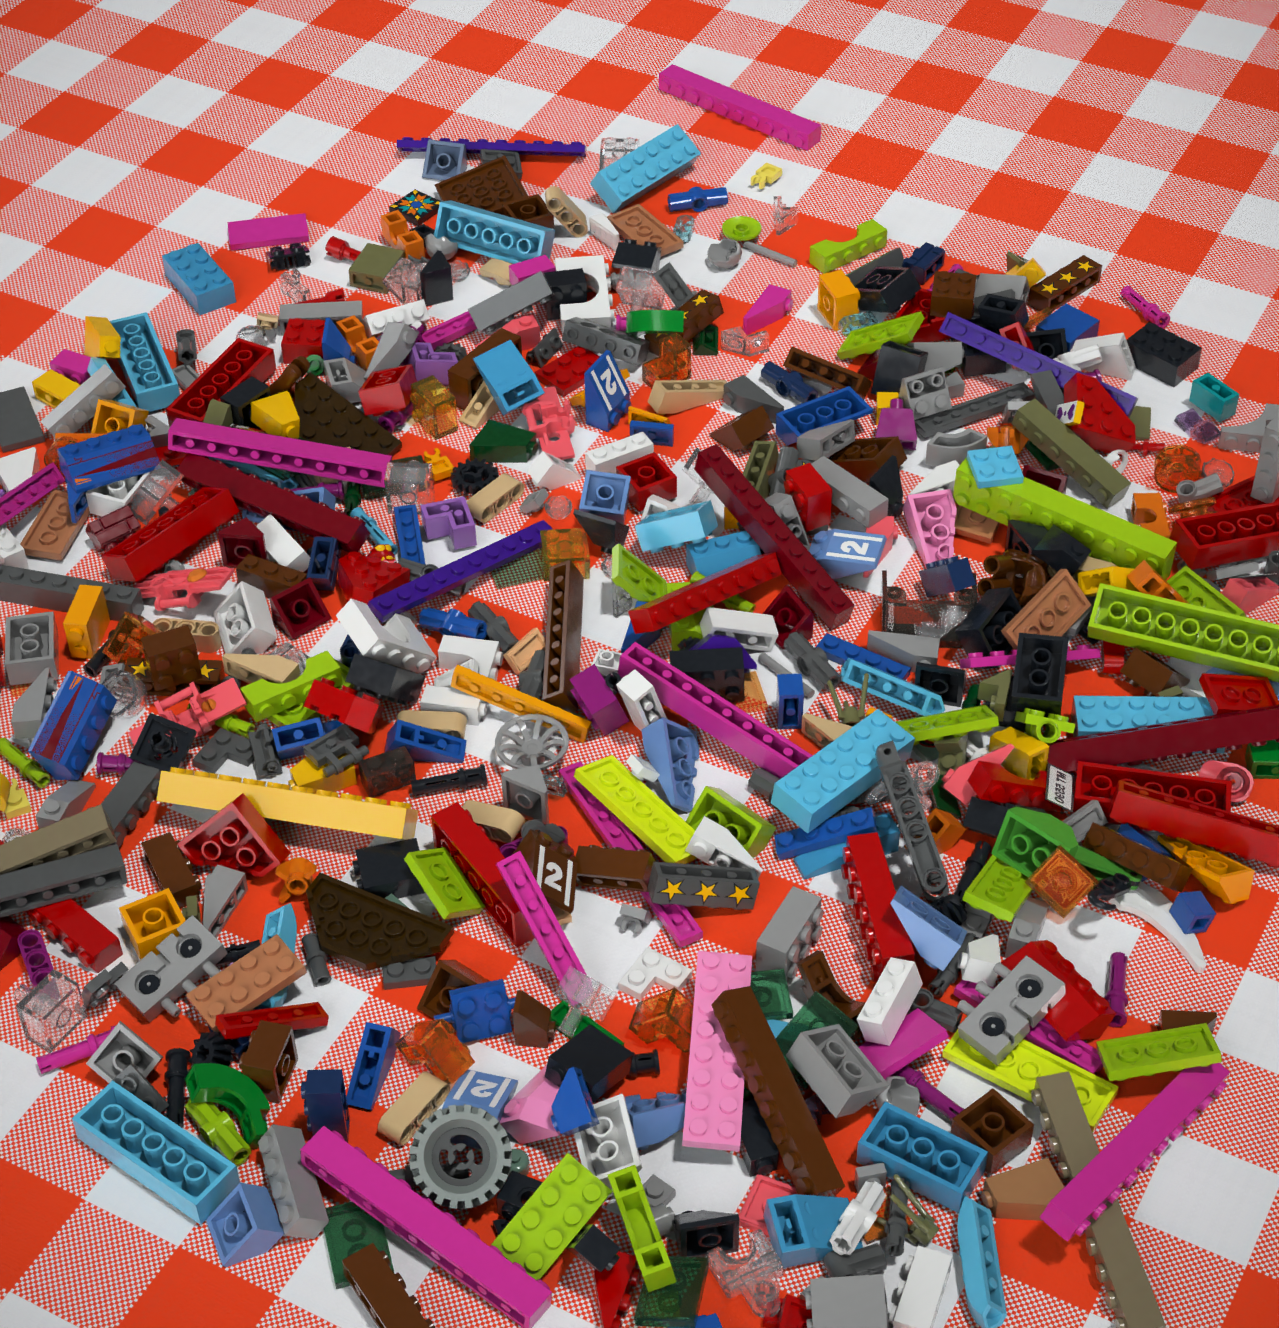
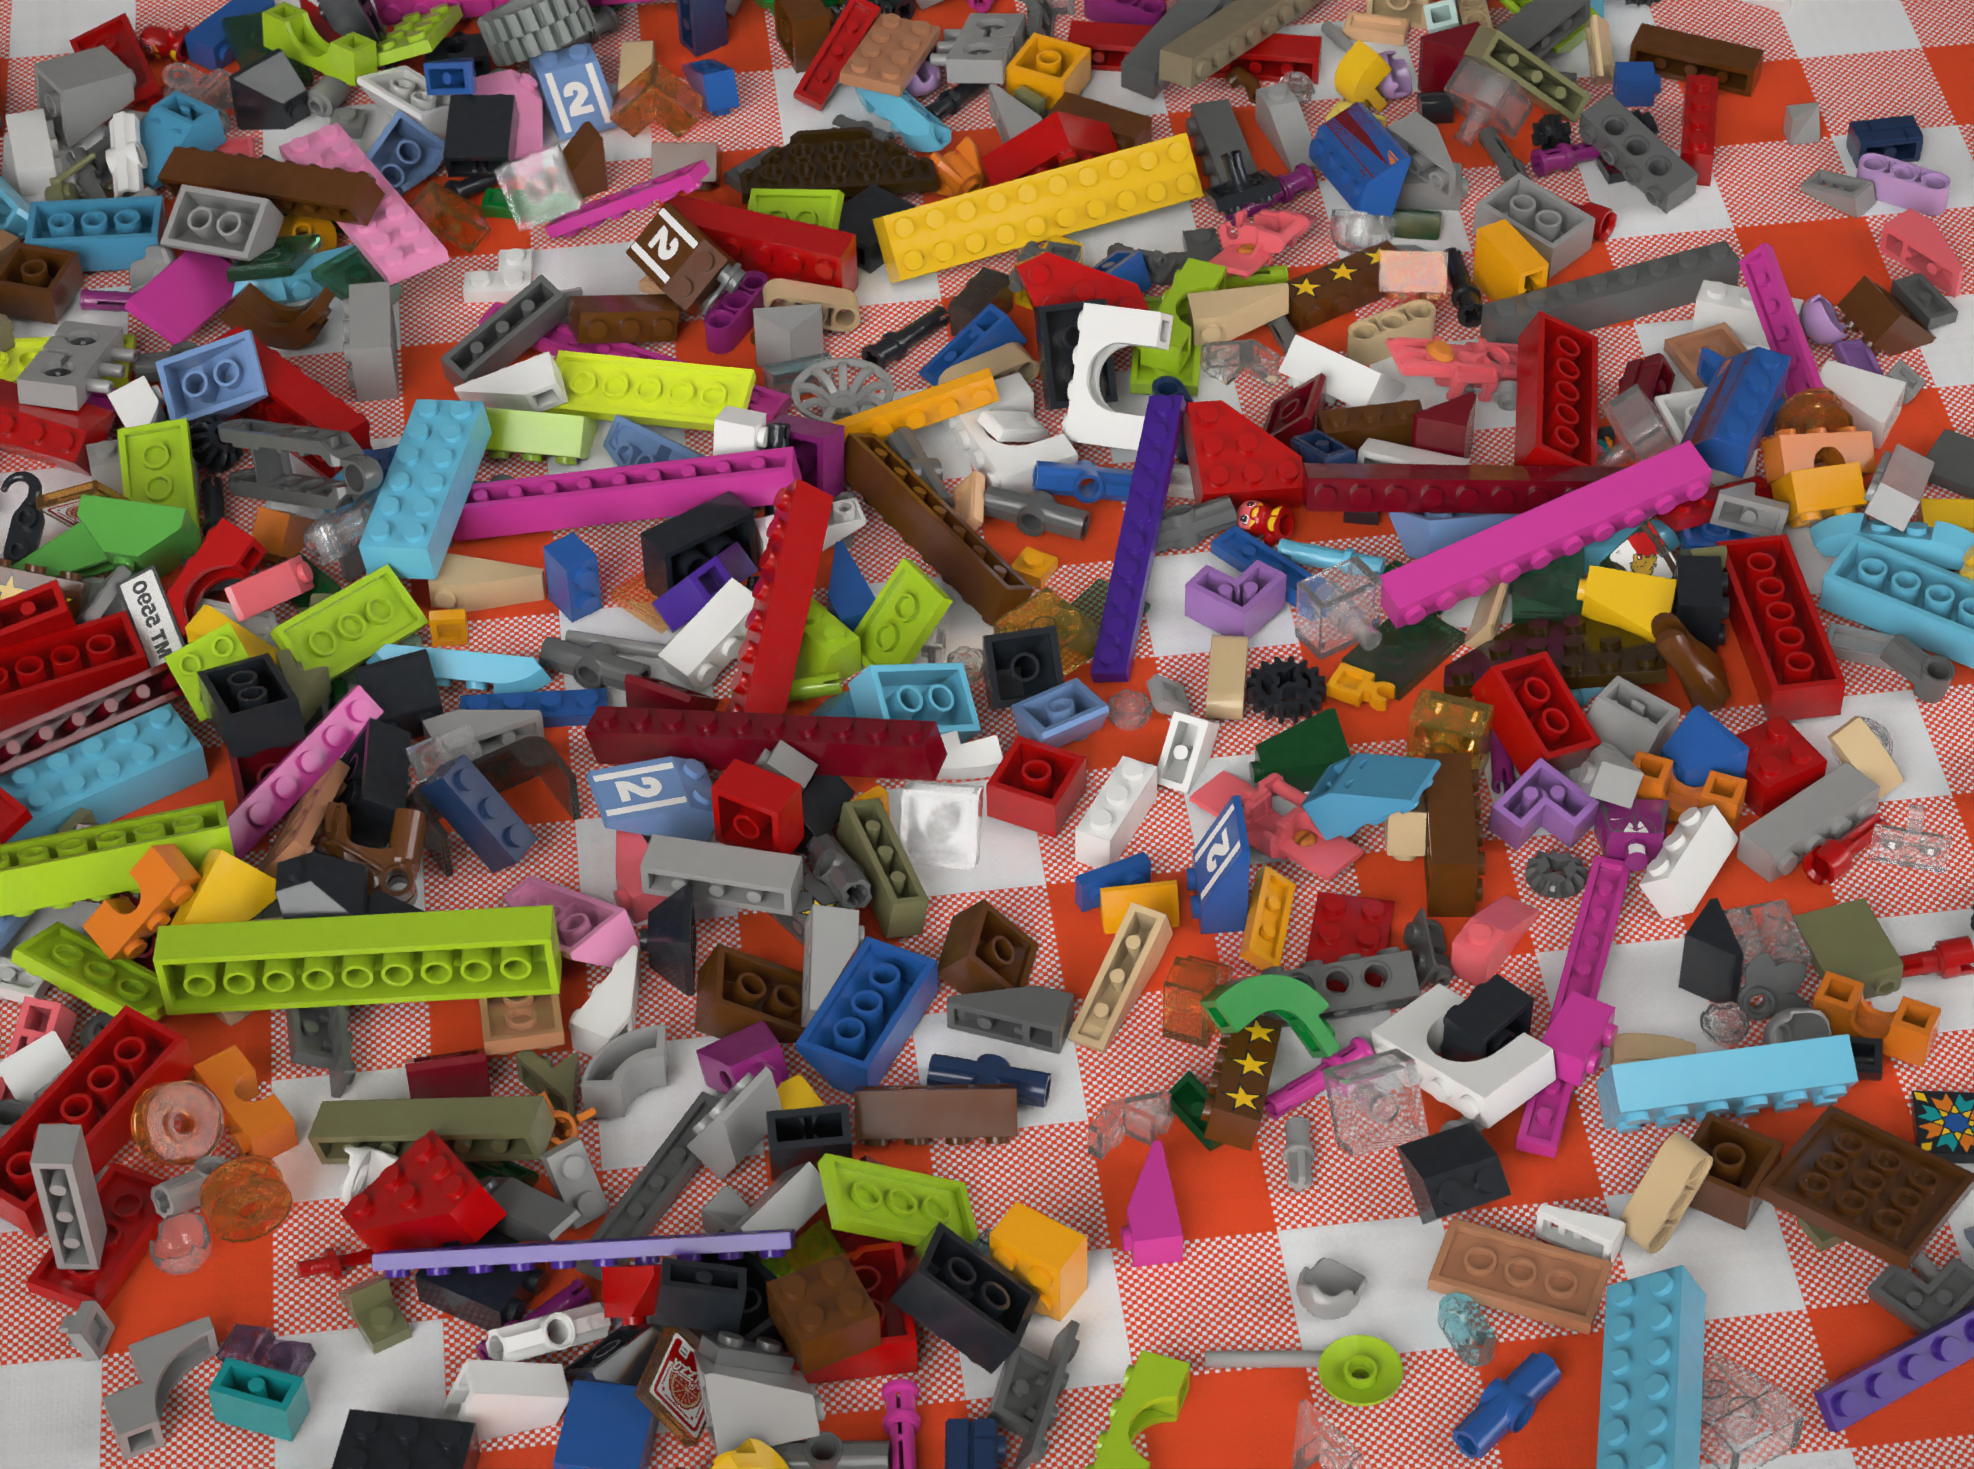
camera: 145 degrees right, 0 degrees up
(171, 657) = (1332, 242): reddish brown brick -> none
(479, 1011) = (636, 145): blue plate -> none
(511, 302) = (1526, 934): brick -> none
(524, 607) = (1035, 566): none -> light orange plate
(642, 769) = (686, 426): white plate -> none
(673, 285) = (1291, 1092): dark grey plate -> none
(850, 714) = (488, 612): olive plant -> none
(889, 1001) = (207, 302): white brick -> none
(995, 467) = (493, 925): medium azure plate -> none
(1070, 412) = (460, 1147): tile -> none

